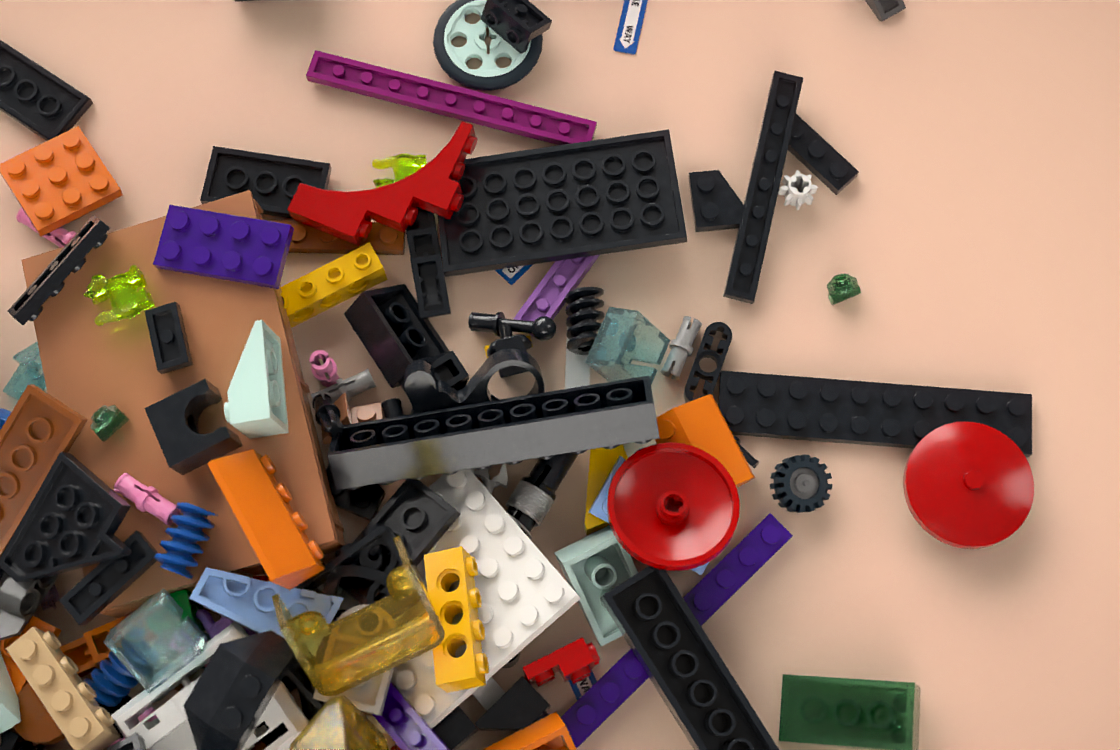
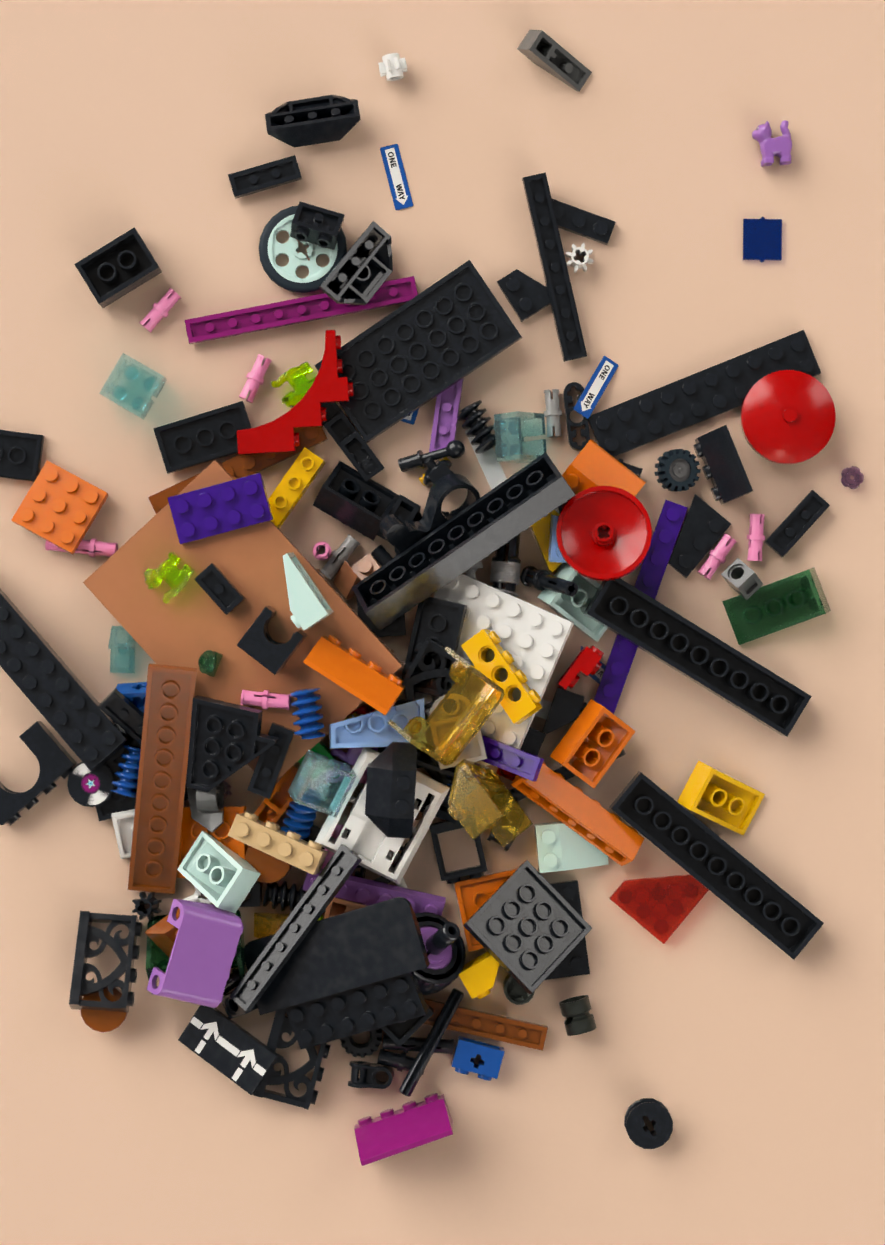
camera: 30 degrees left, 15 degrees up
(51, 279) = (117, 578): black plate -> none
(216, 89) = (133, 386): none -> clear light blue piece
(296, 30) = (160, 310): none -> bright pink pin
(327, 414) = (343, 582): black axle -> none
(358, 148) = (255, 378): none -> bright pink pin
(539, 82) = (361, 268): none -> black wedge
(571, 533) = (543, 580): none -> black pin
(747, 342) = (596, 387): none -> sticker
(788, 578) = (698, 535): none -> black wing
(802, 614) = (717, 556): none -> bright pink pin
(821, 656) = (742, 579): none -> dark grey brick
(842, 288) = (642, 315): clear green plate -> none
(861, 503) = (722, 465): none -> black slope
(862, 613) = (755, 537): none -> bright pink pin
(922, 622) = (797, 523): none -> black plate
(1009, 603) = (858, 477): none -> clear purple plate
(1024, 272) = (762, 239): none -> clear blue piece
(1085, 175) = (771, 147): none -> medium lavender animal

